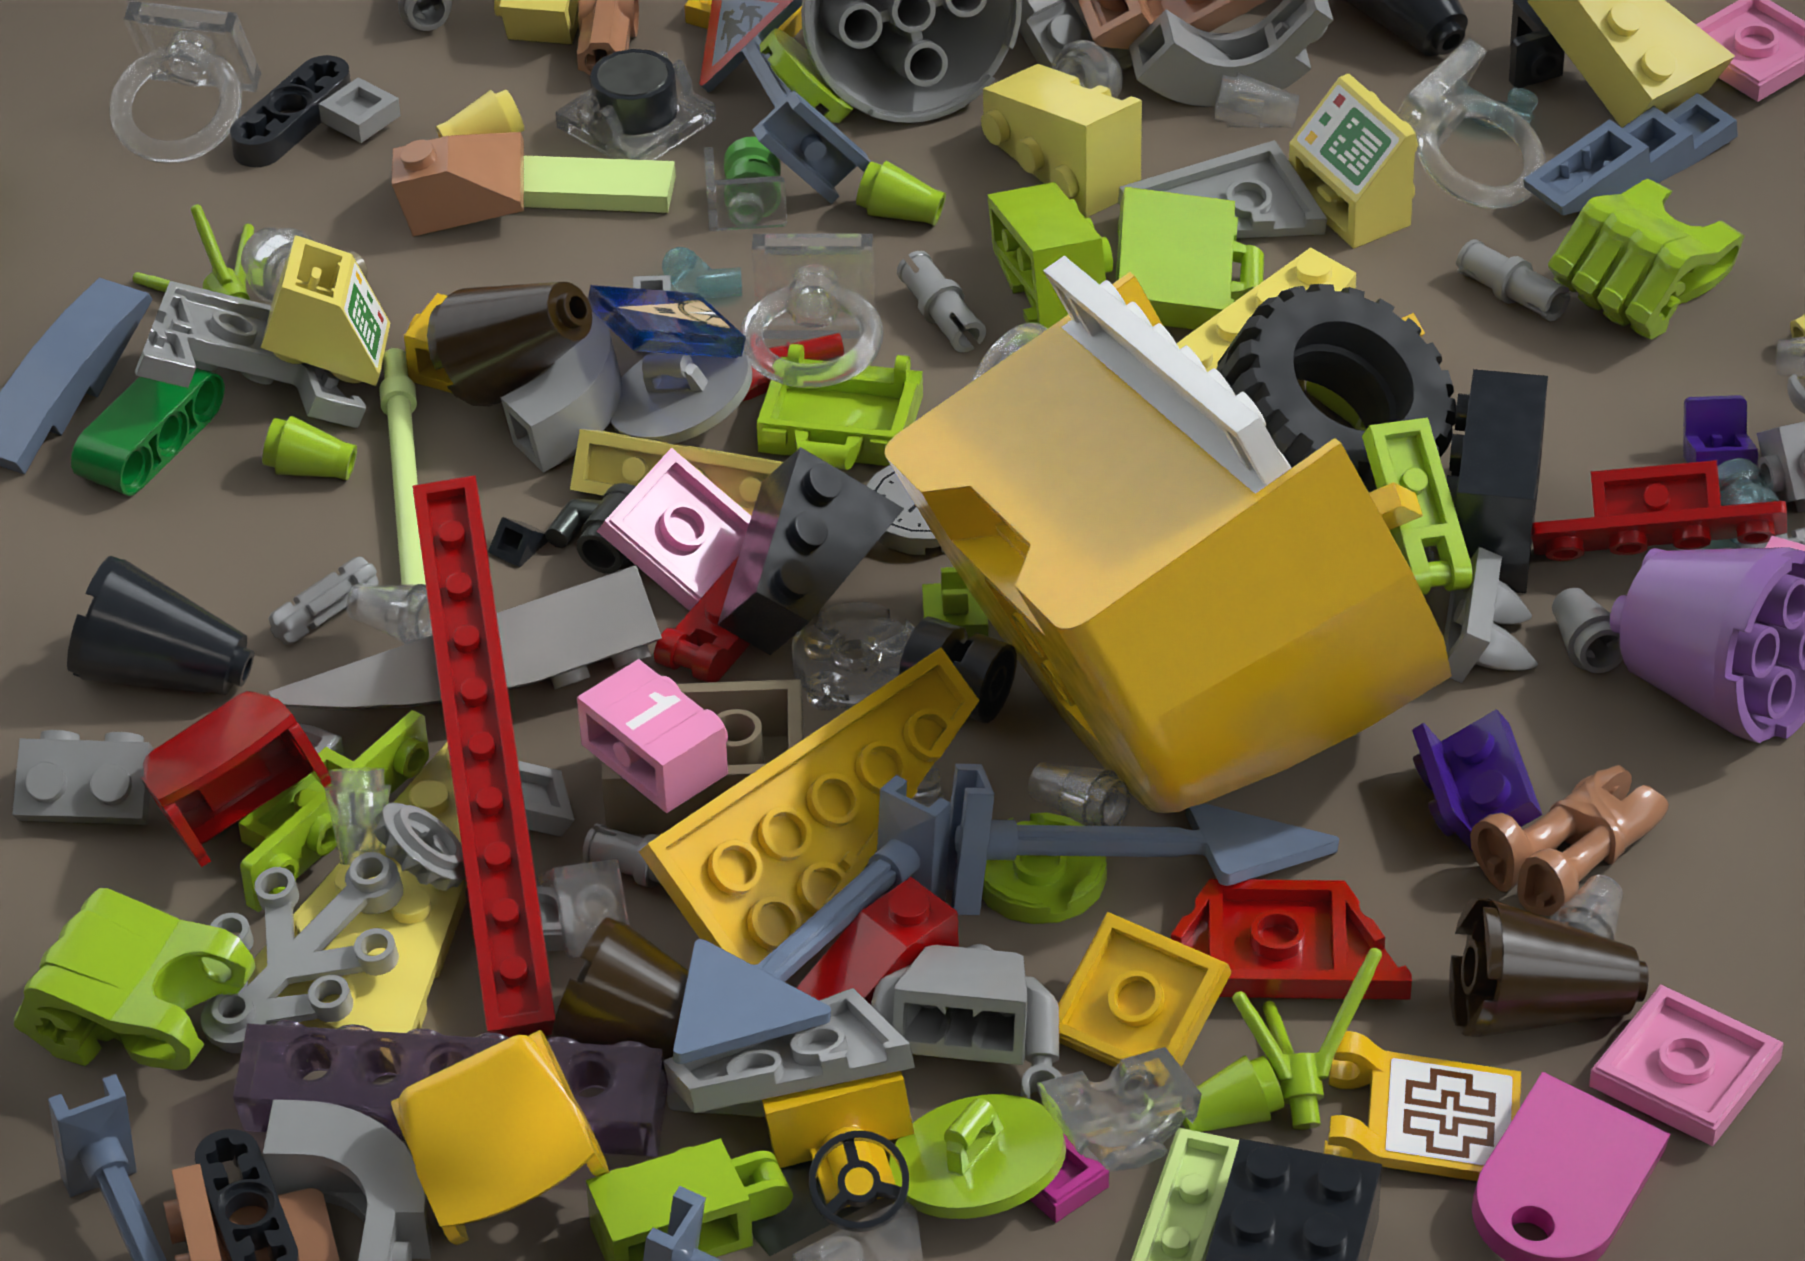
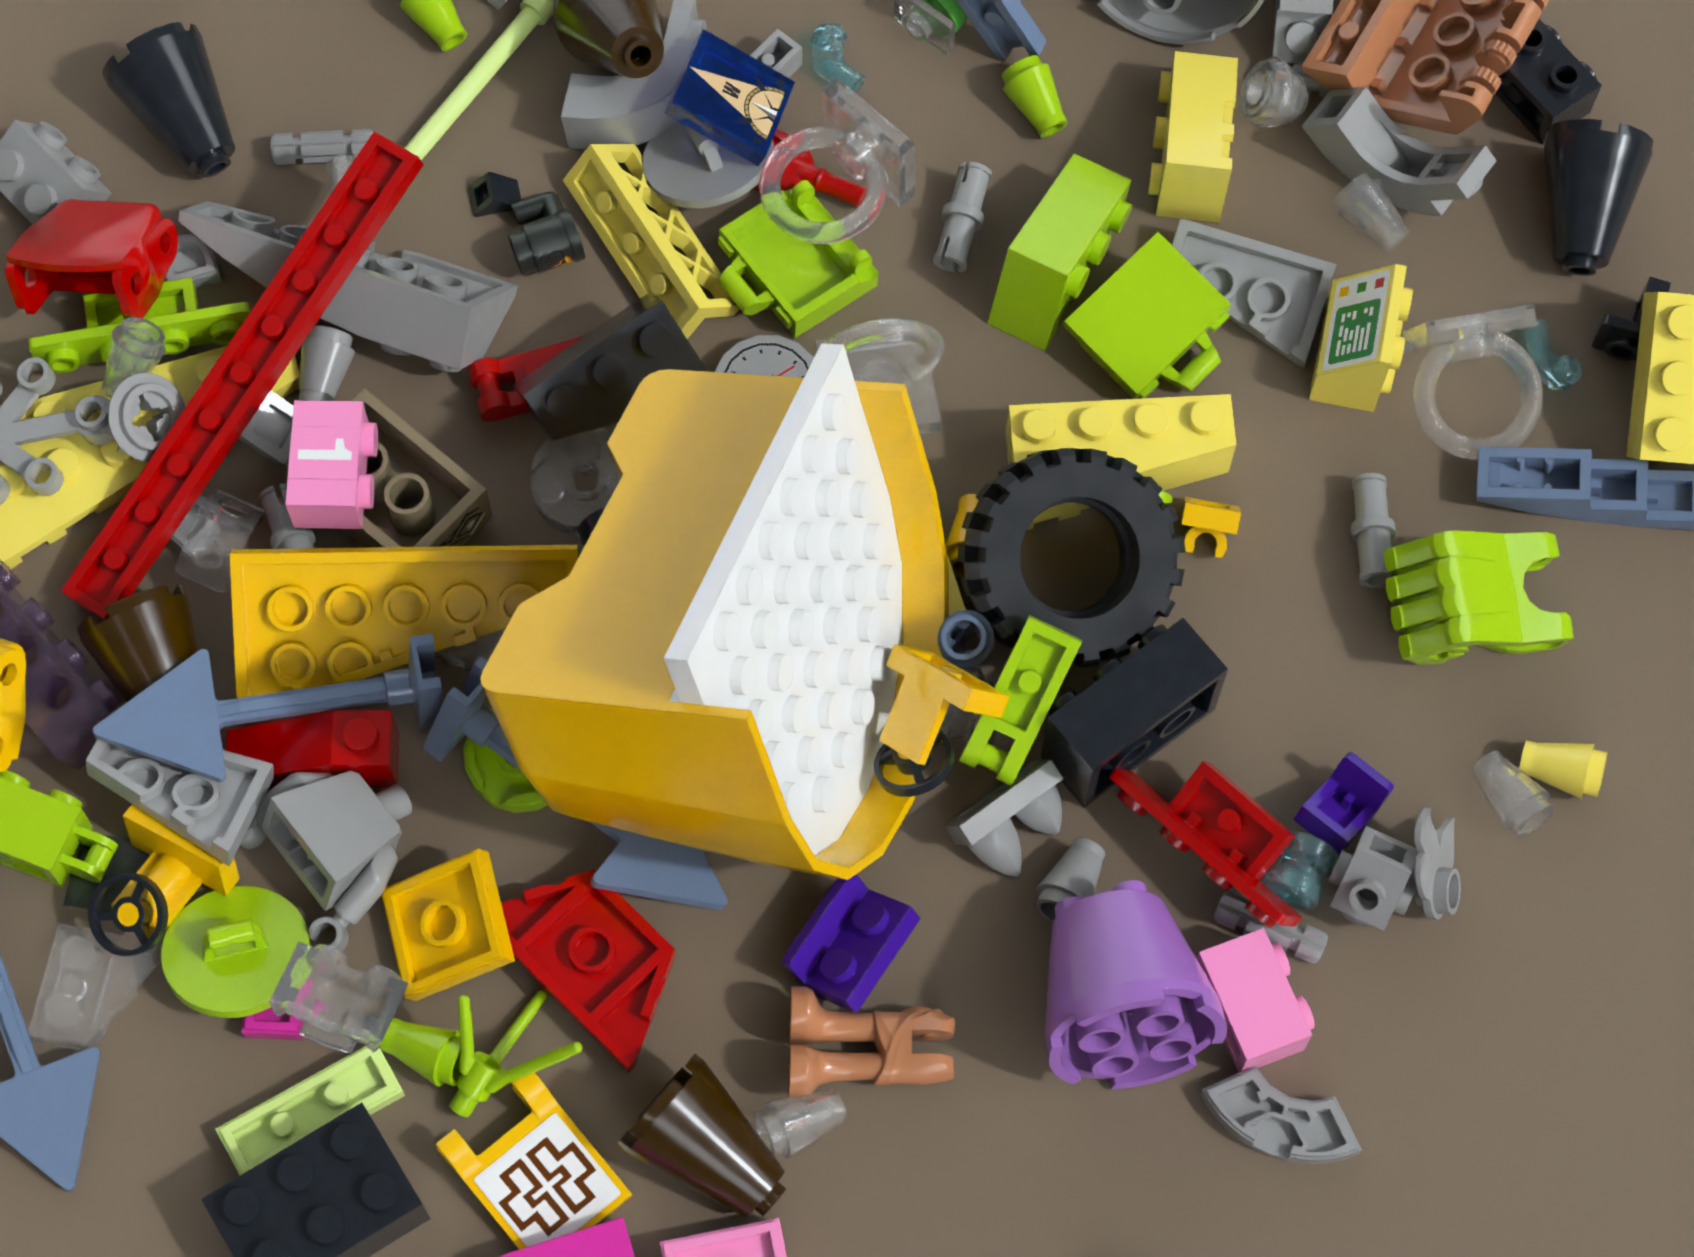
camera: 40 degrees right, 25 degrees up
(532, 730) = (324, 363): none -> light grey cone
(678, 529) = (575, 279): bright pink plate -> none

